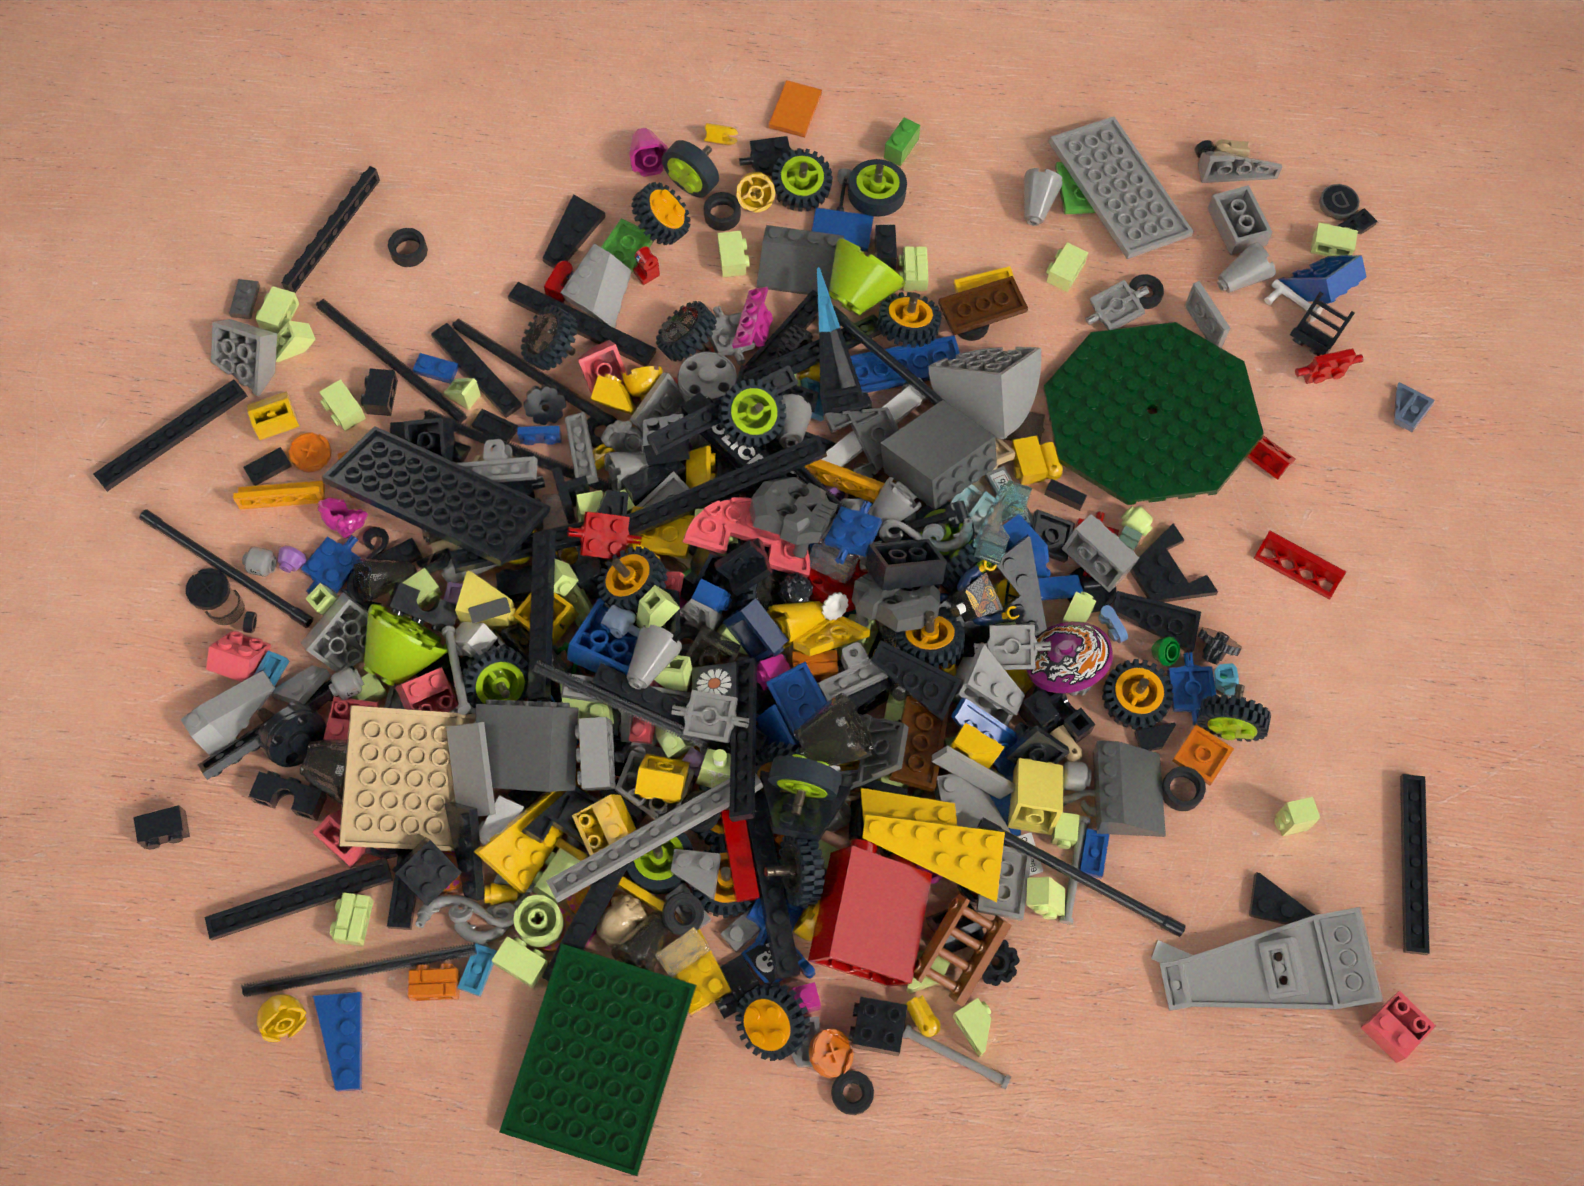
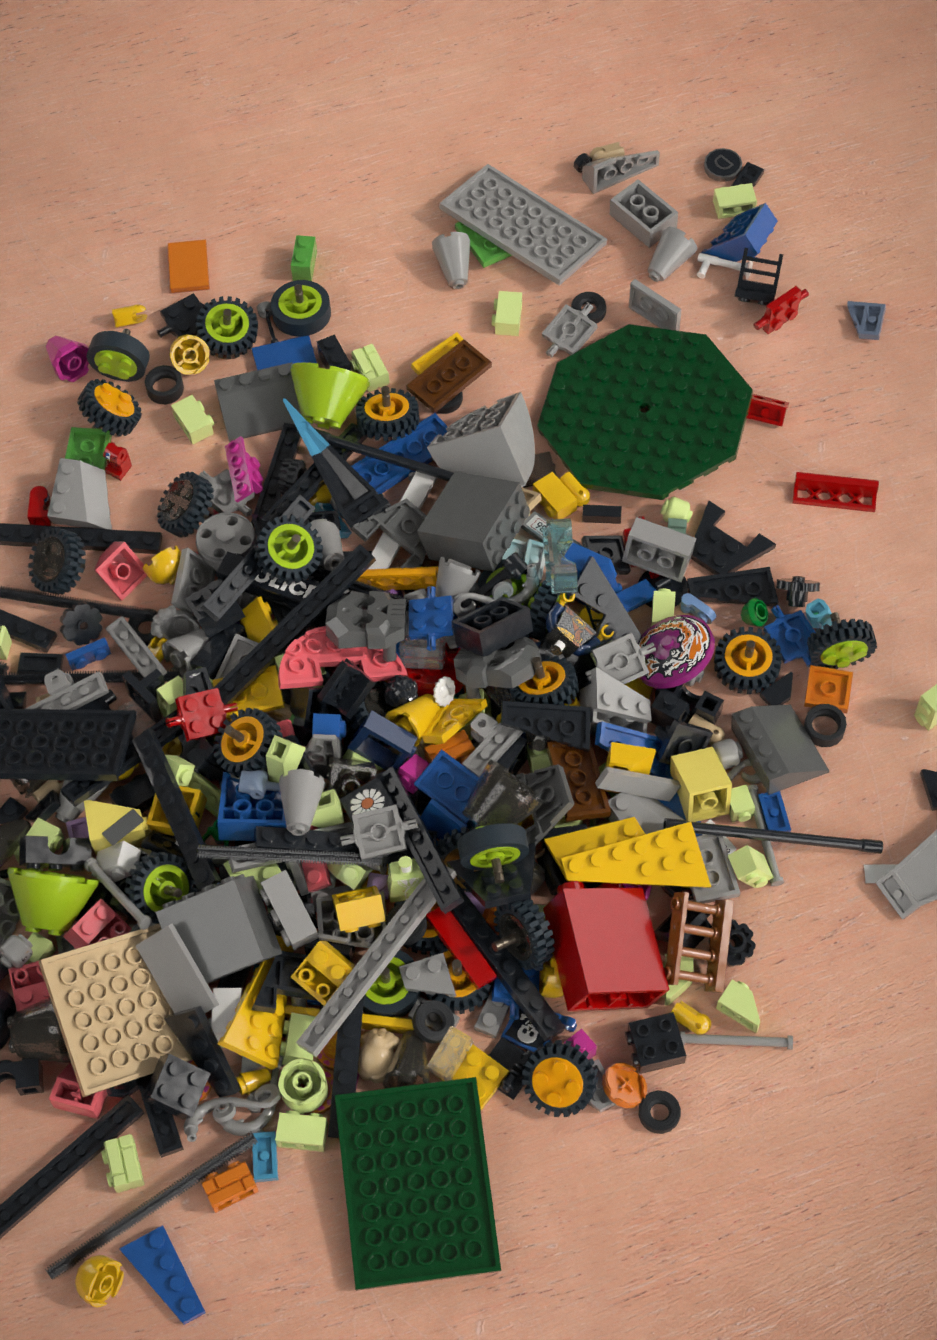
camera: 20 degrees left, 5 degrees down
(573, 230) = (29, 455): black wing -> none
(611, 393) = (143, 589): yellow slope -> none

